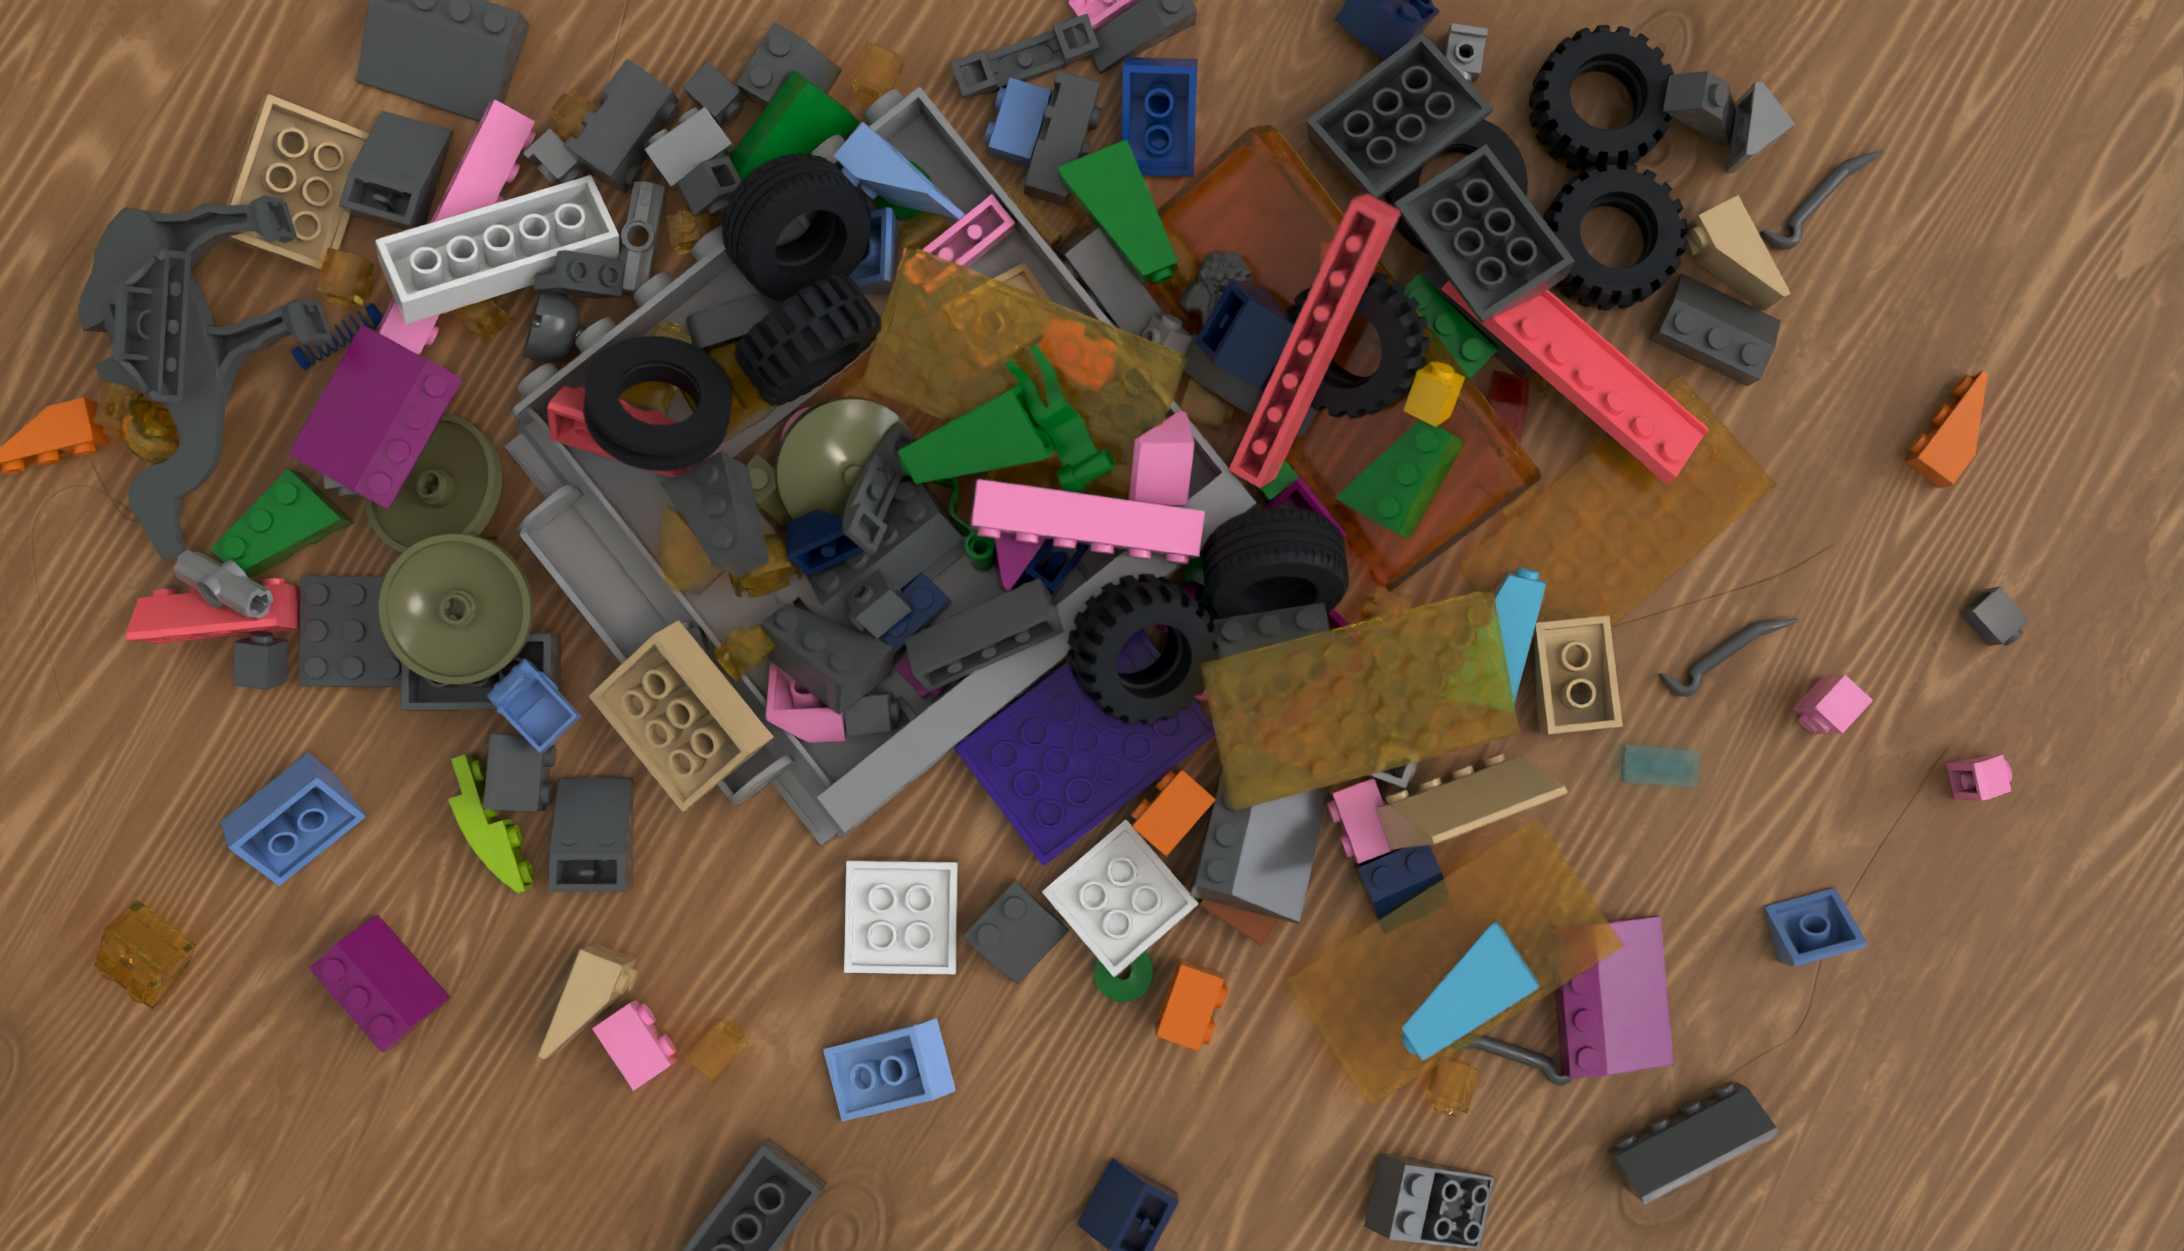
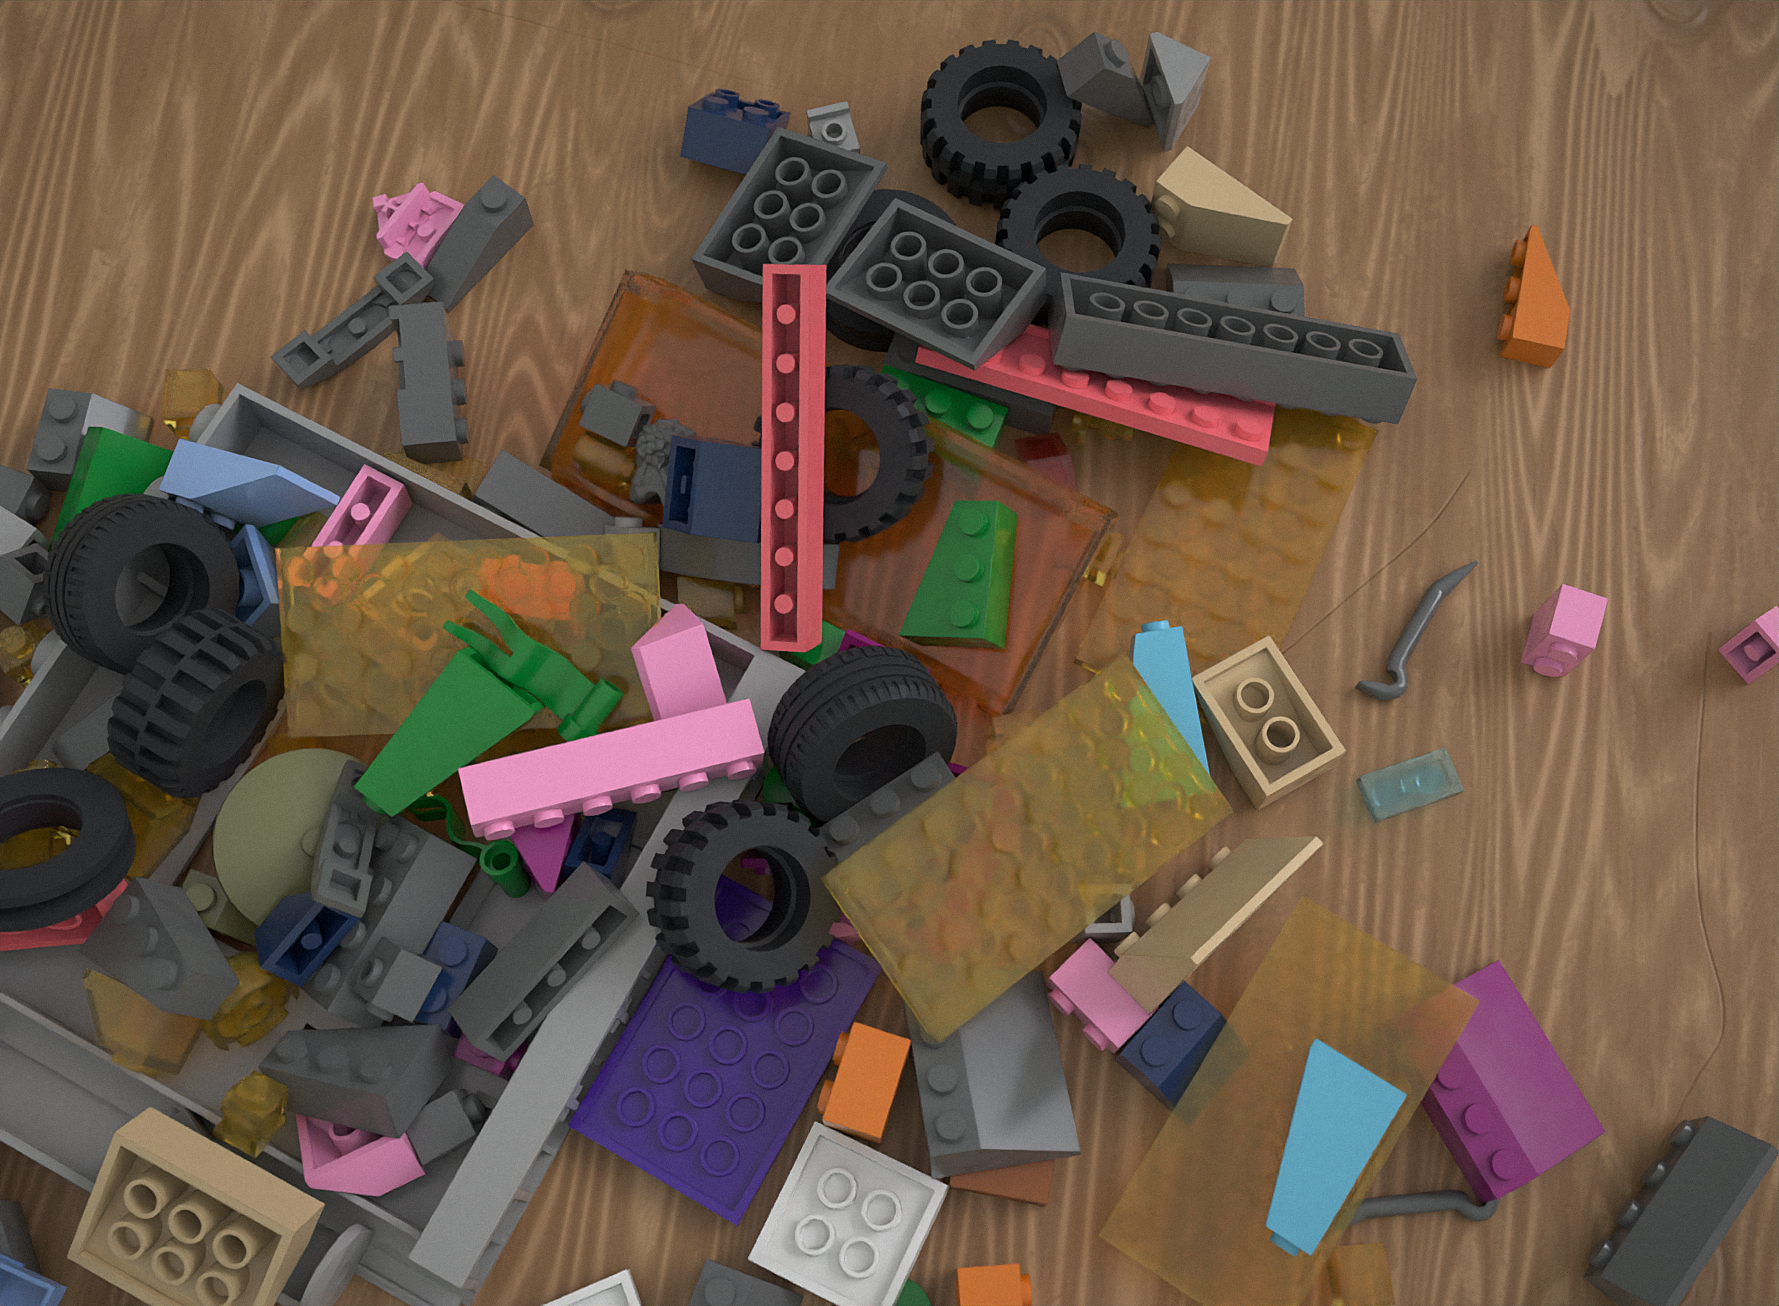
camera: 25 degrees left, 15 degrees down
(1018, 121) = (370, 390): medium blue brick -> none
(1118, 201) = (510, 411): green slope -> none
(1160, 114) = (528, 324): blue slope -> none
(1197, 228) = (616, 412): none -> dark grey brick
(1434, 393) = (957, 467): yellow brick -> none
(1688, 378) = (1229, 349): none -> dark grey brick
(1812, 928) = (1677, 894): medium blue slope -> none
(1818, 196) = (1271, 134): dark grey piece -> none
(1995, 617) = (1683, 469): dark grey brick -> none

